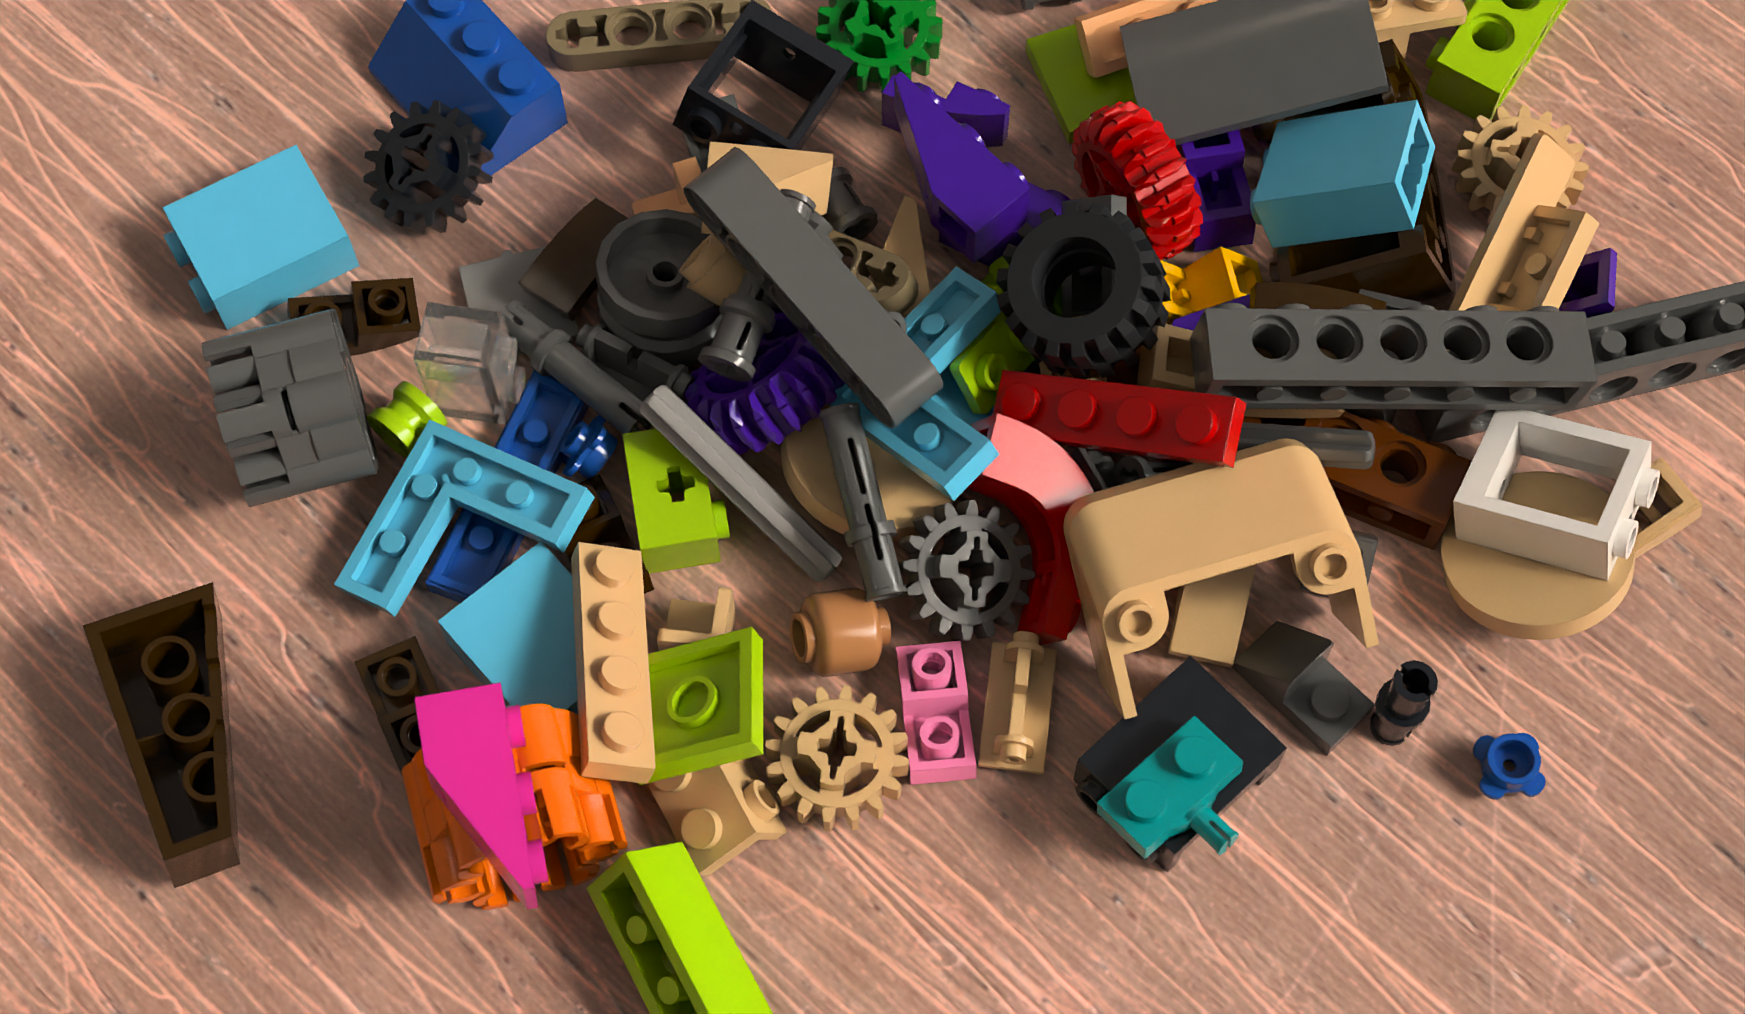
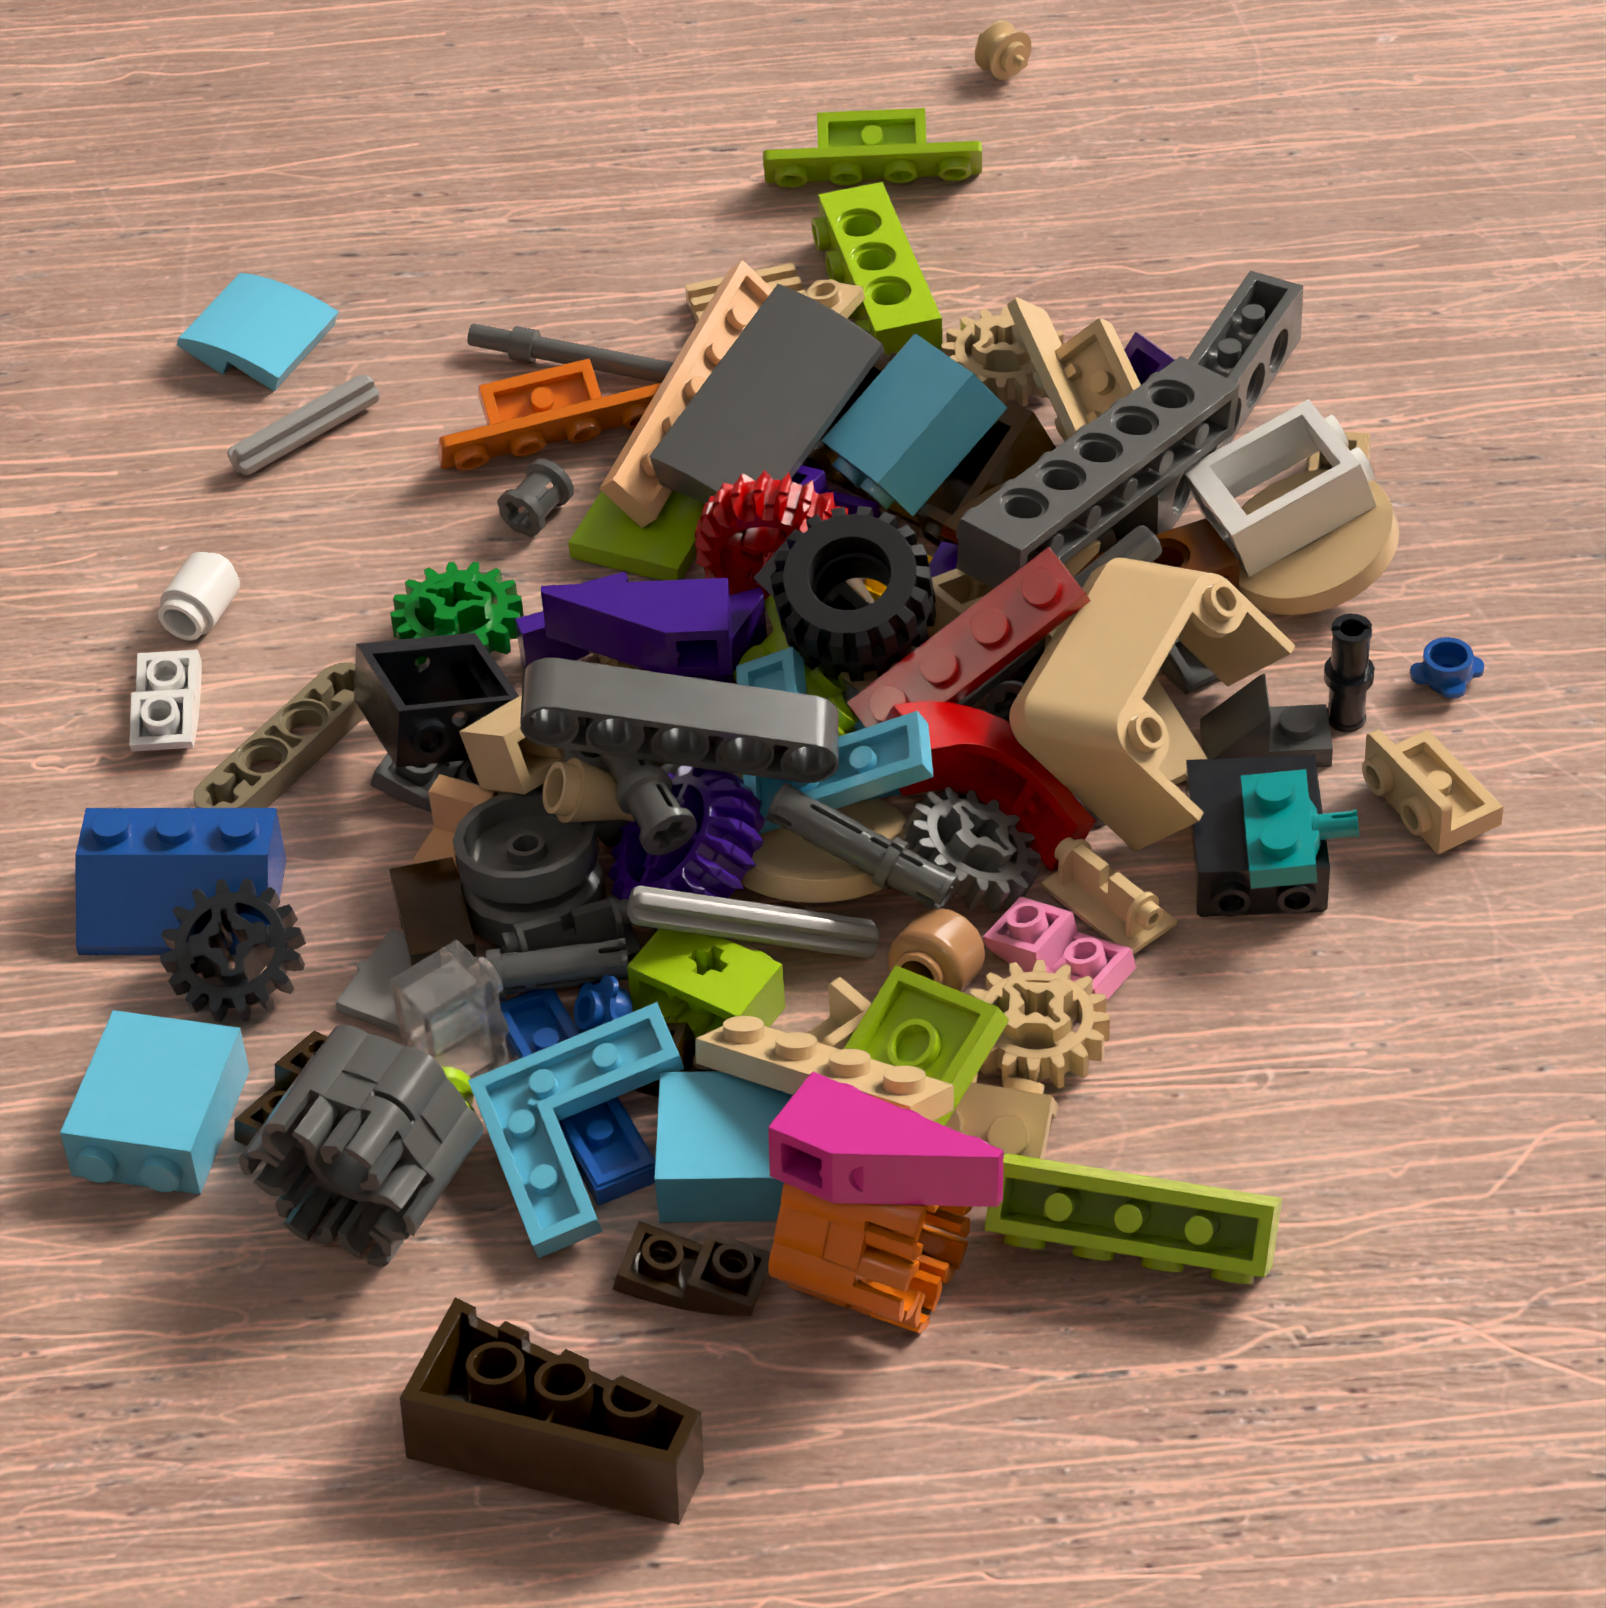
camera: 45 degrees left, 20 degrees down
(1355, 858) = (1429, 789): none -> tan bracket

